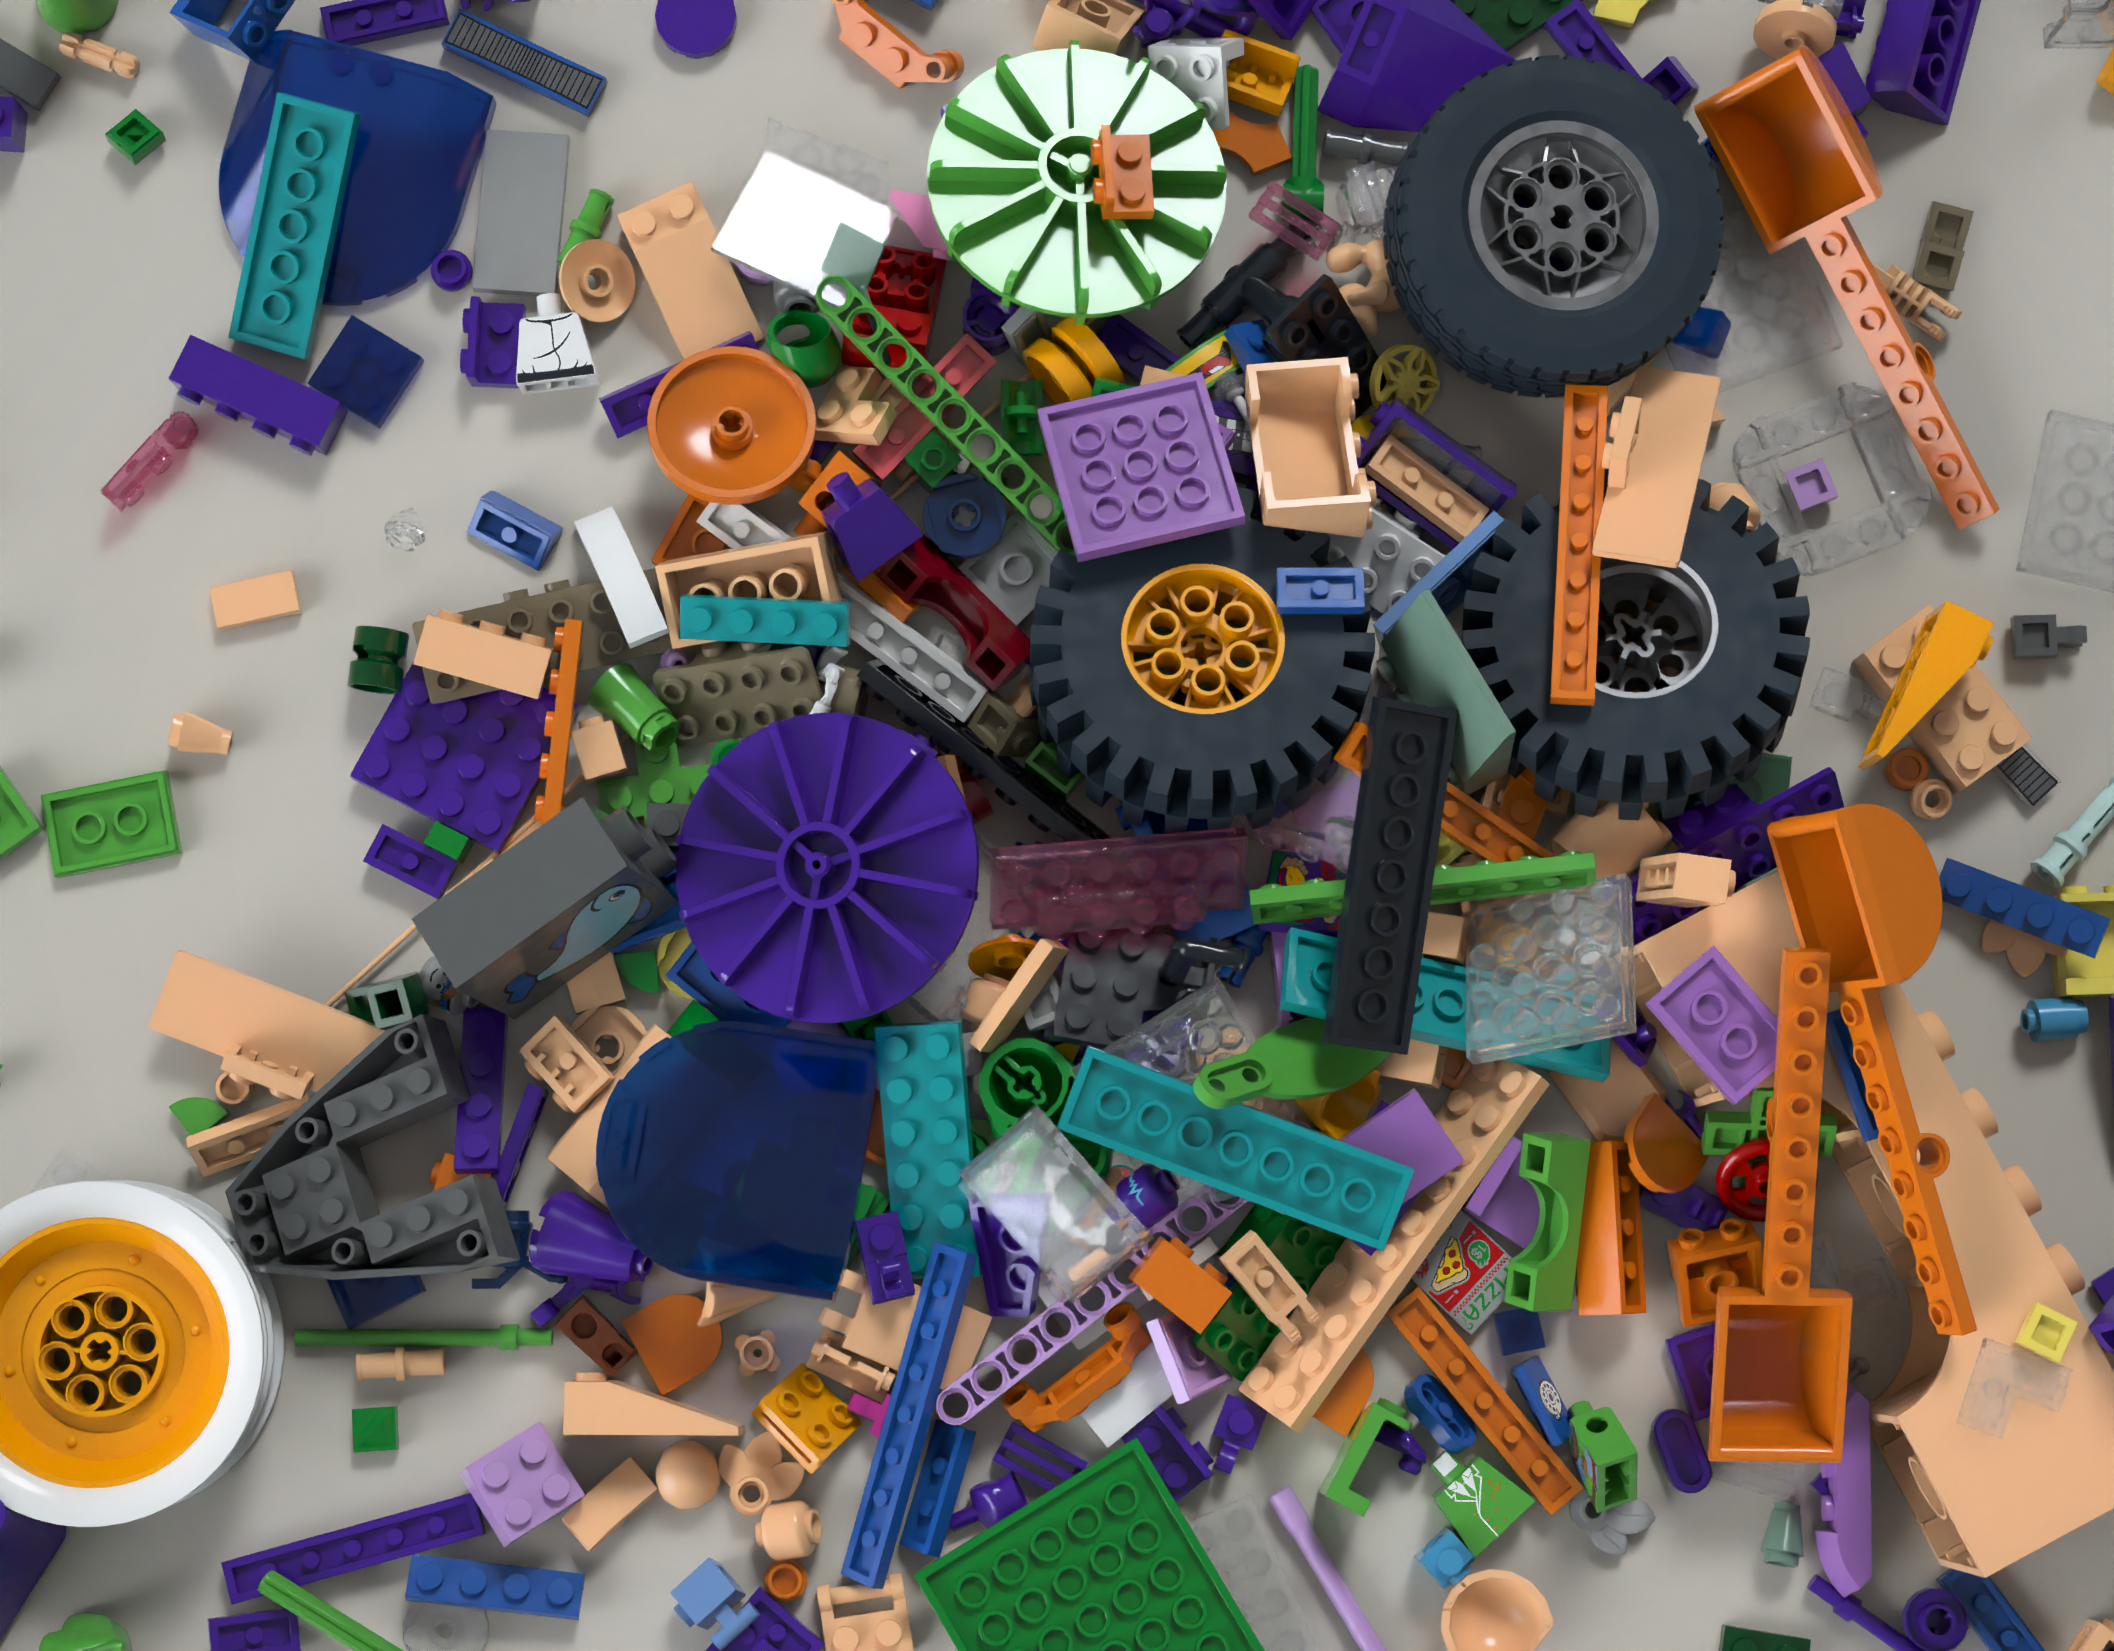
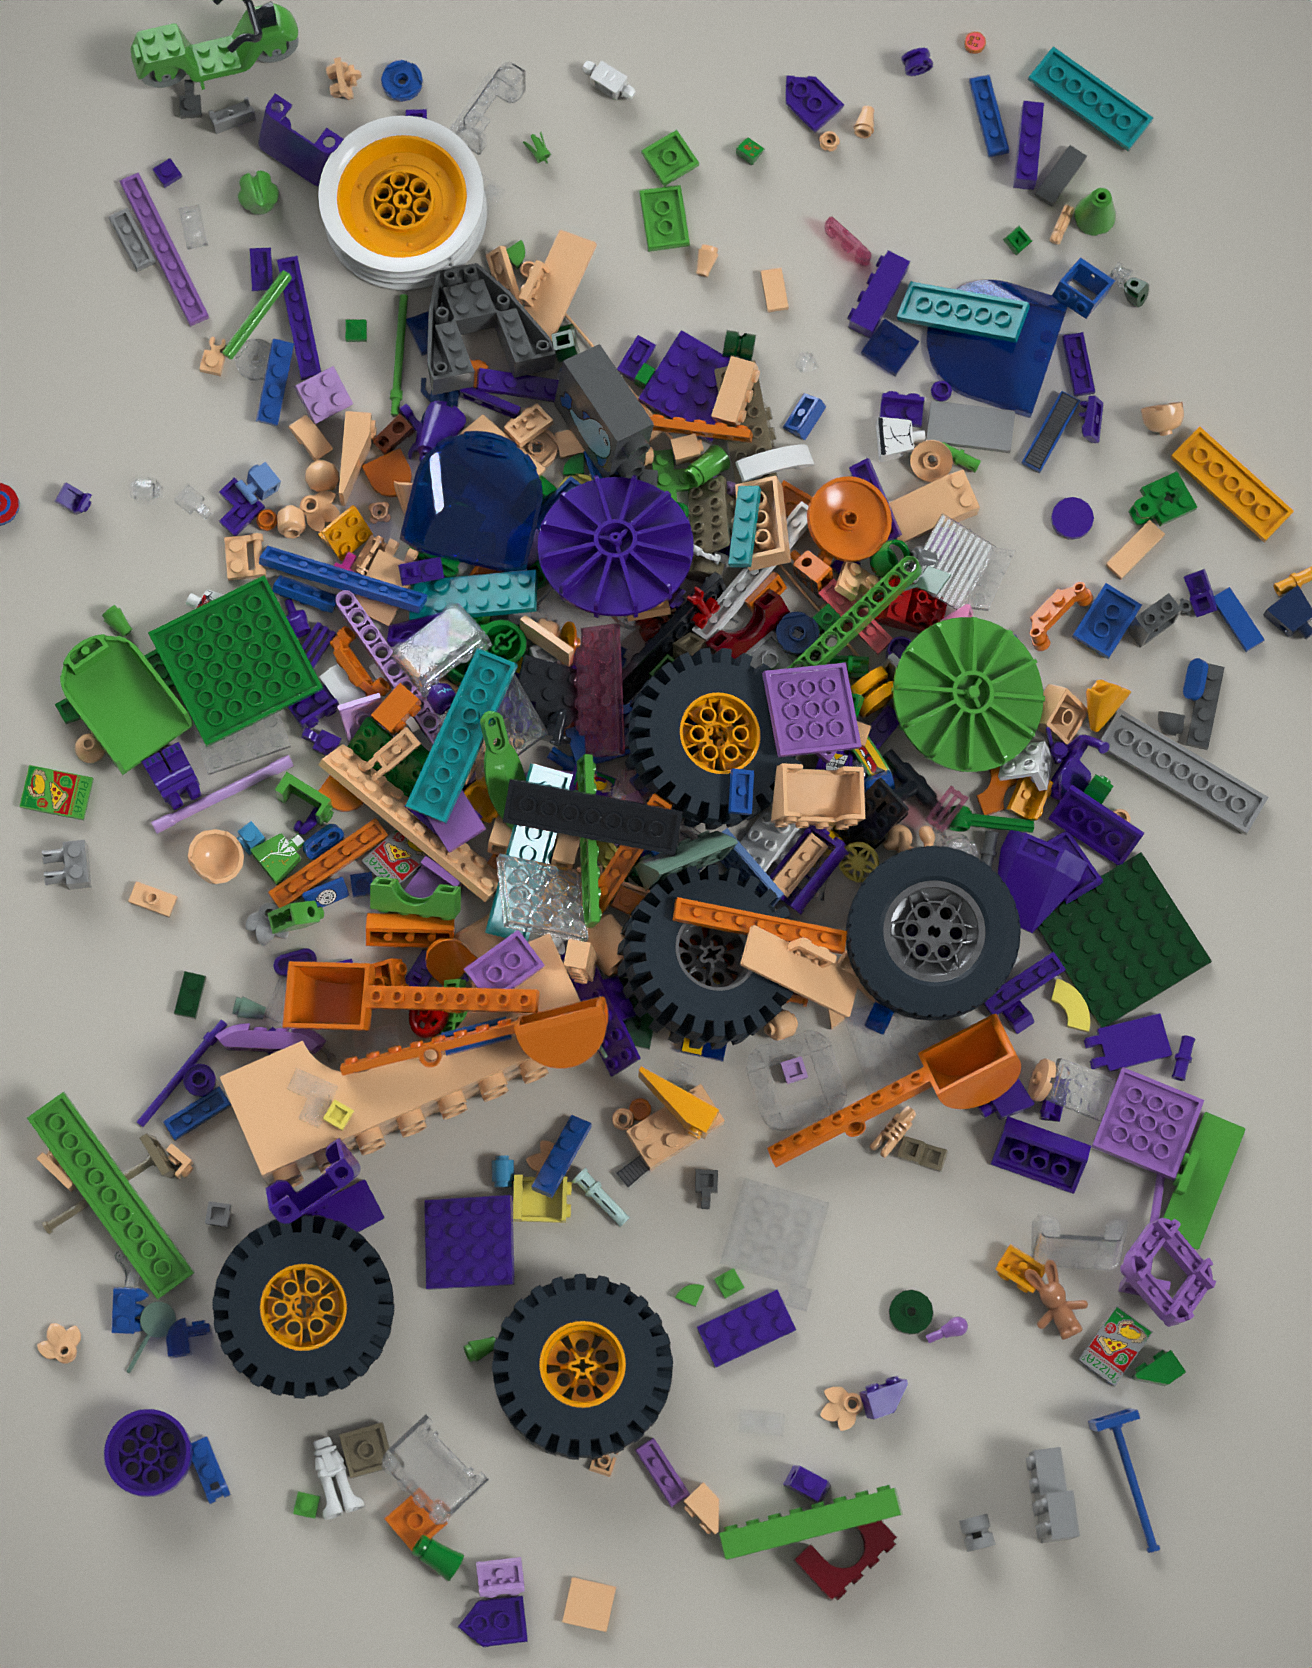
camera: 90 degrees right, 5 degrees down
(400, 1364) = (386, 343): light nougat pin -> none
(866, 525) = (792, 580): dark purple torso -> none
(928, 696) = (706, 610): none -> red bar
(1124, 175) = (965, 710): orange bracket -> none

